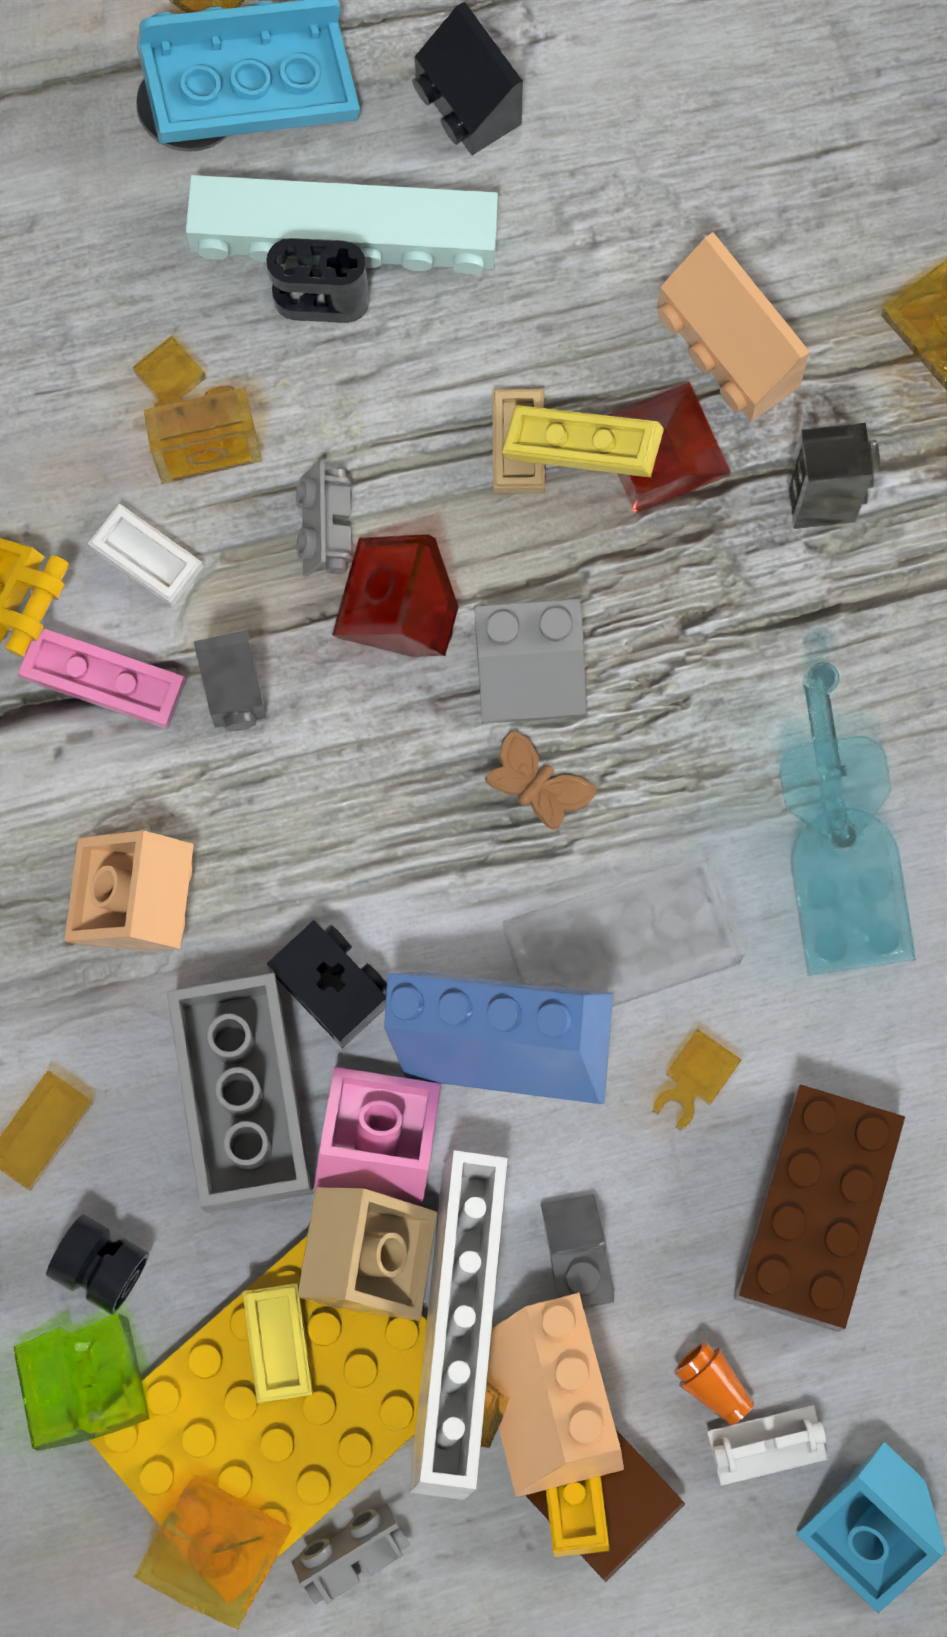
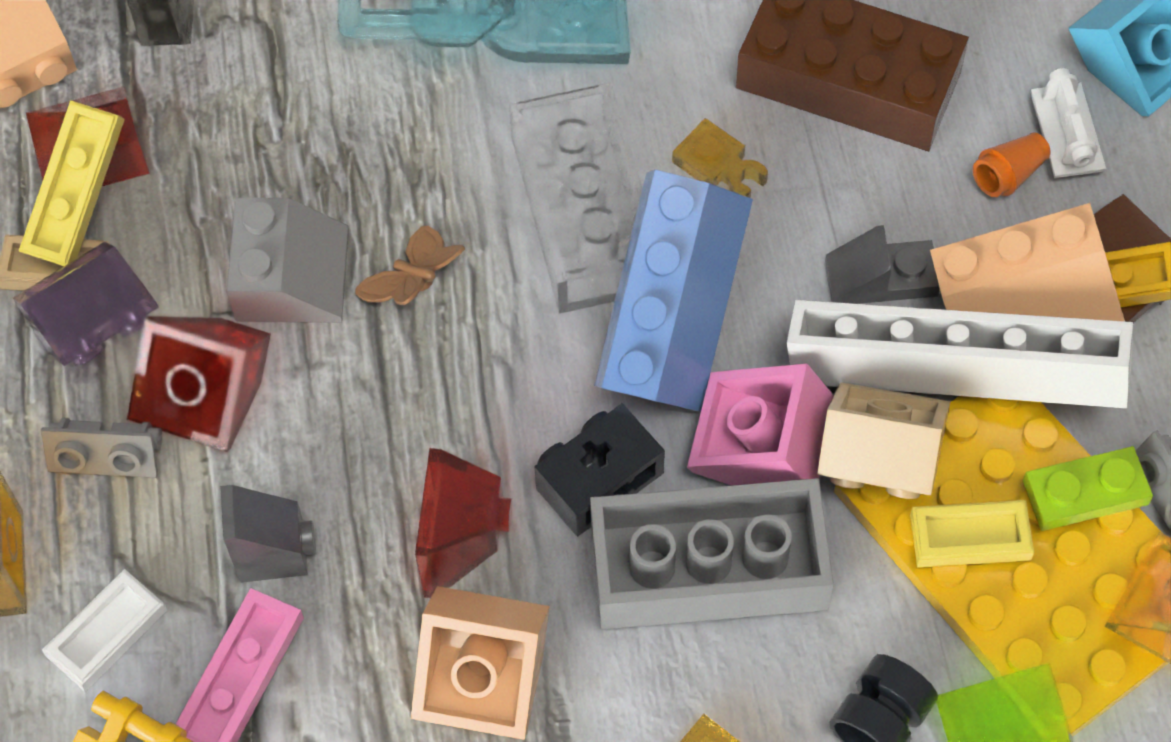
camera: 85 degrees left, 15 degrees down
(257, 853) = (458, 520): none -> clear red slope
(333, 1457) = (1087, 488): none -> lime plate
(452, 478) = (86, 305): none -> clear purple slope

